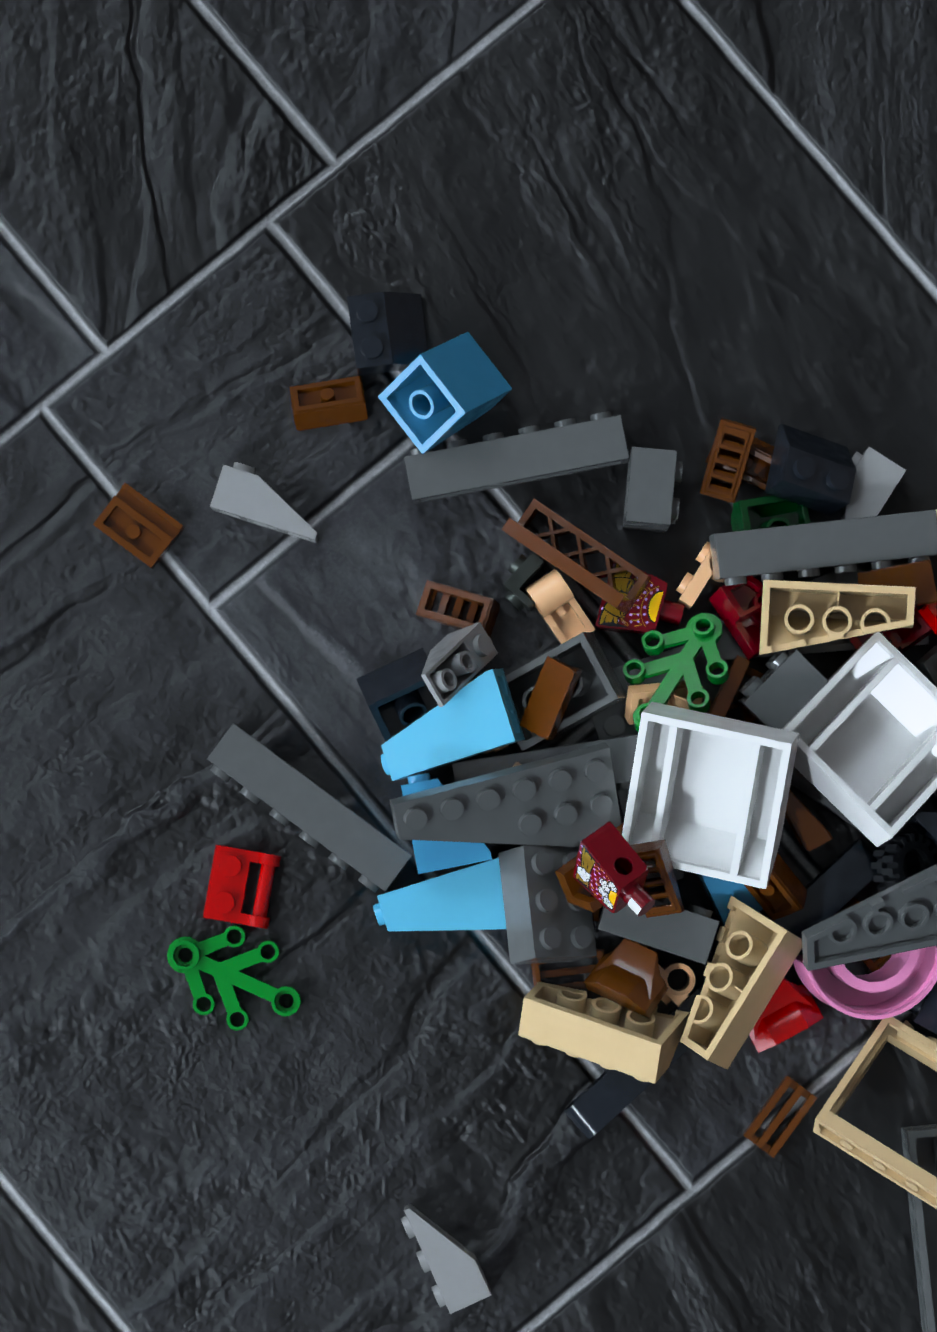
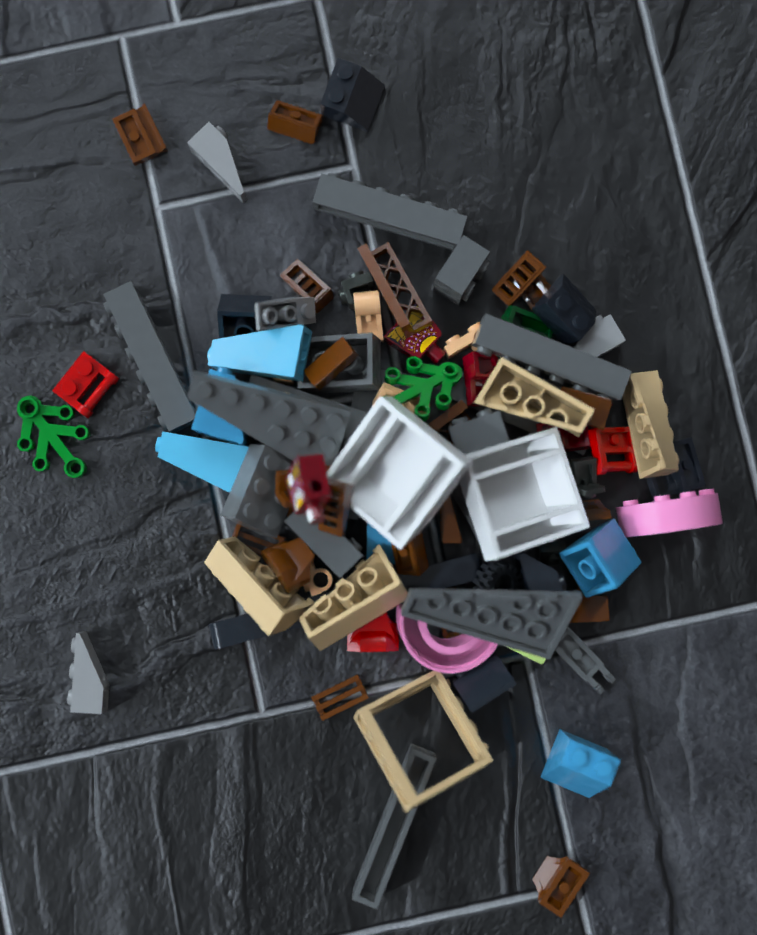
camera: 20 degrees right, 0 degrees up
(444, 391) = (367, 145): dark azure slope -> none

